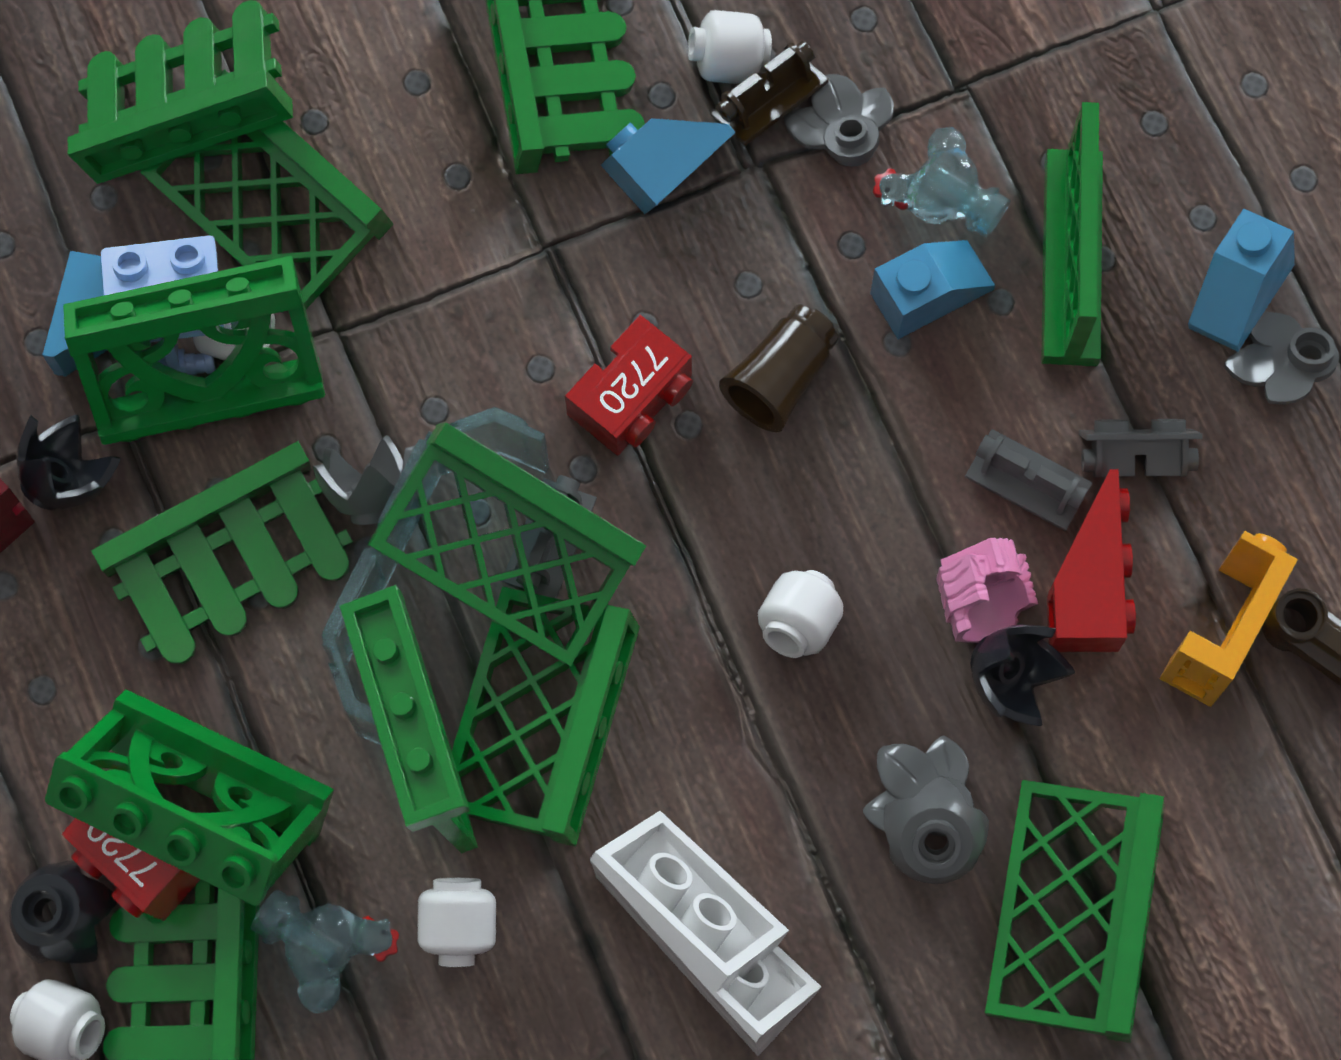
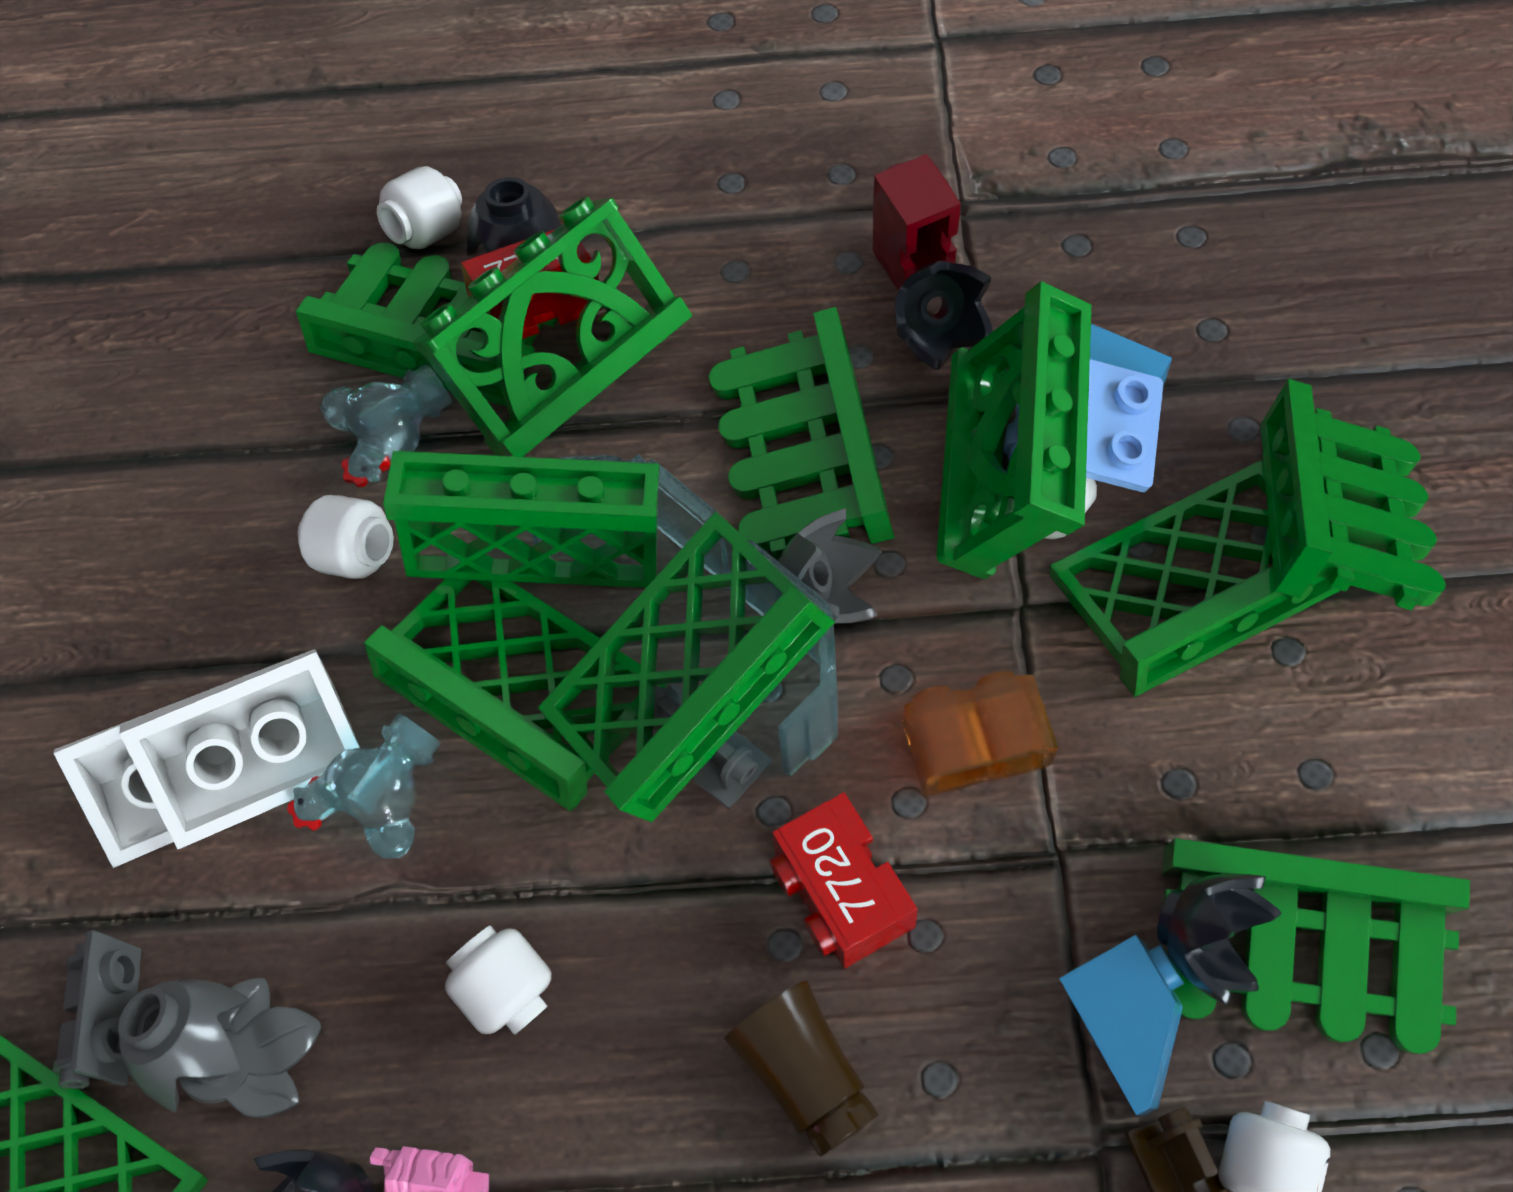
camera: 115 degrees right, 10 degrees down
(471, 322) = (978, 732): none -> clear orange brick
(592, 114) = (1198, 930): none -> black piece
(680, 786) = (371, 787): none -> clear light blue animal
(919, 928) = (98, 987): none -> dark grey hinge

